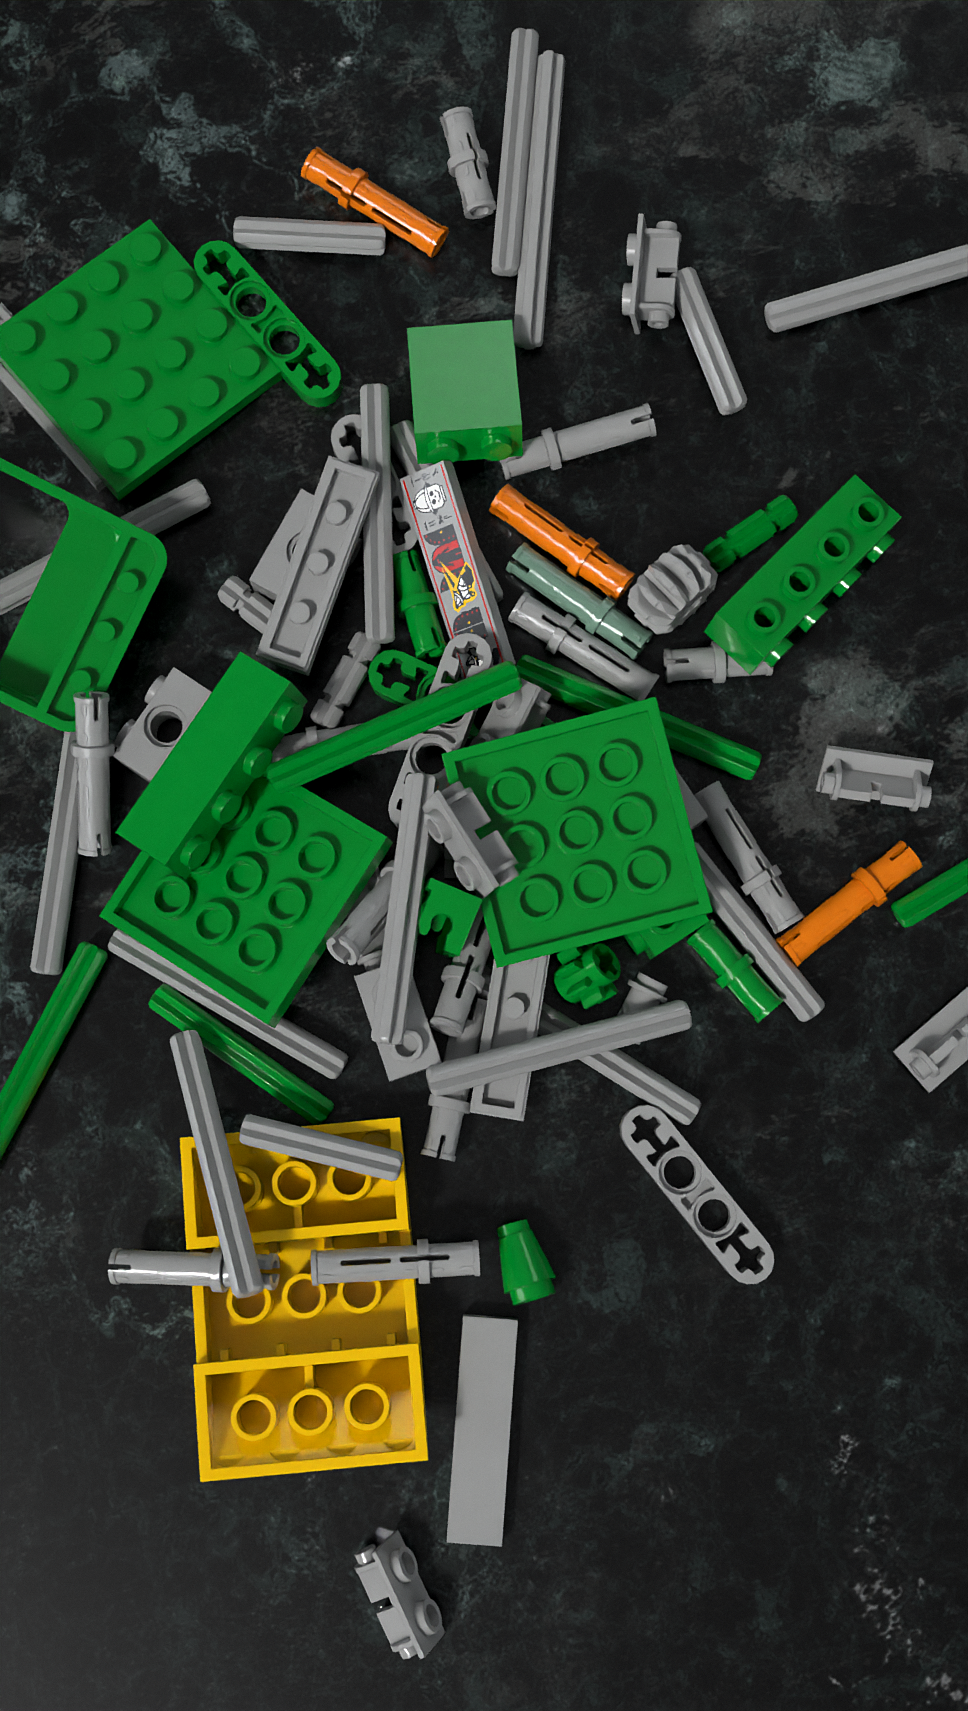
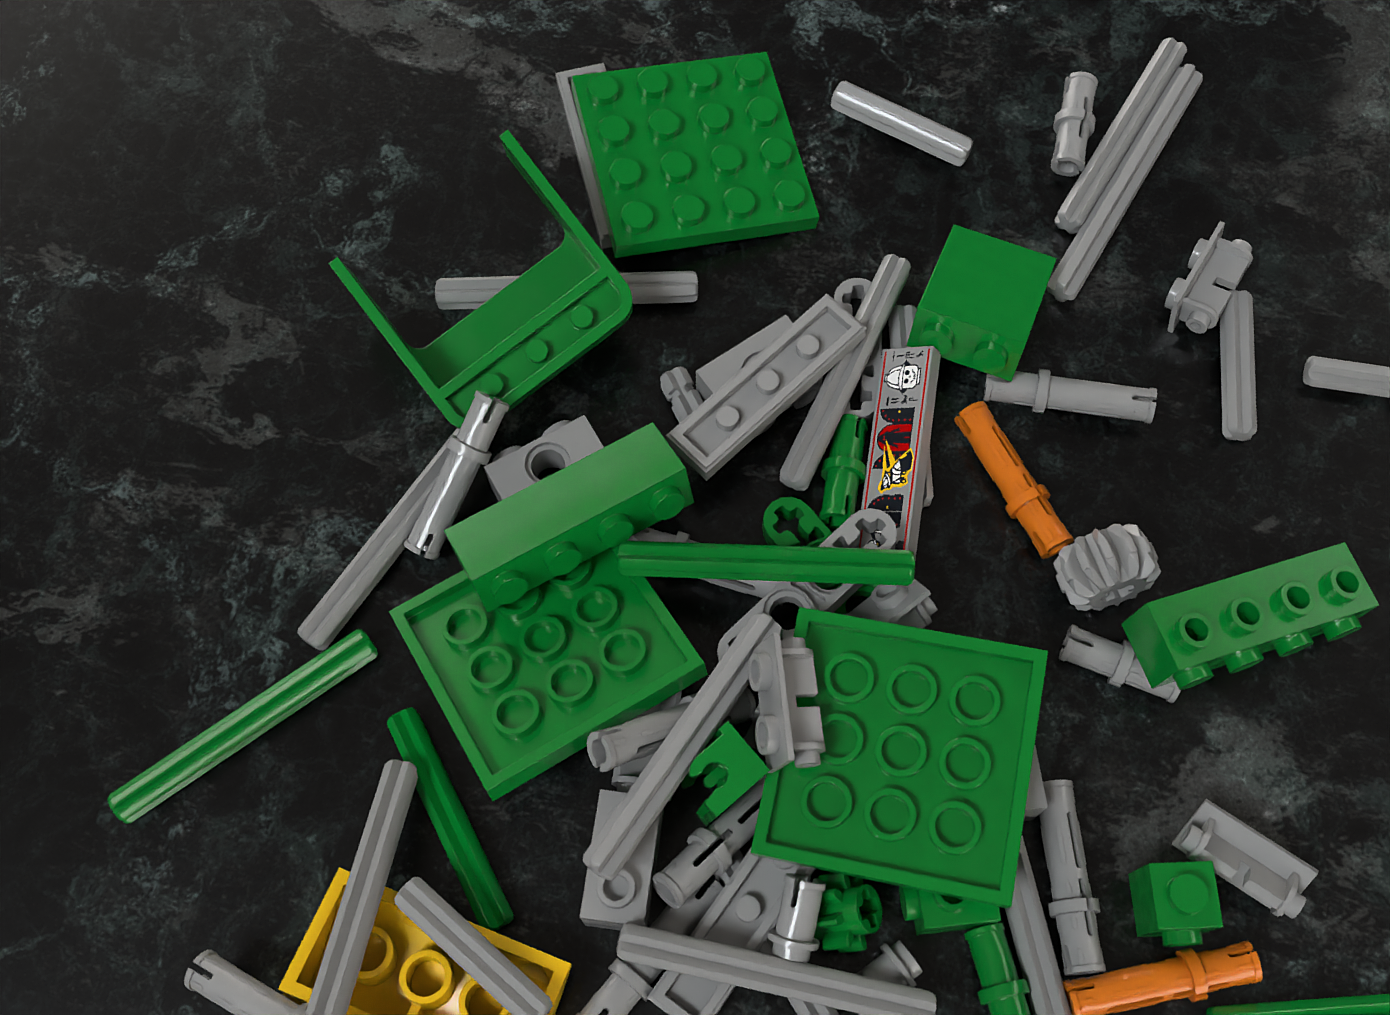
camera: 30 degrees right, 15 degrees down
(273, 320) = (830, 176): green beam -> none
(285, 1036) = (498, 815): light grey axle -> none
(345, 682) = (739, 509): light grey axle -> none
(357, 191) = (961, 104): orange pin -> none
(555, 997) = (797, 918): none -> light grey pin
(579, 601) = (1017, 559): sand green pin -> none
(582, 647) = (975, 565): light grey pin -> none
(680, 734) = (1054, 719): green axle -> none
(751, 533) = (1211, 555): green axle -> none
(835, 838) = (1175, 901): none -> green brick

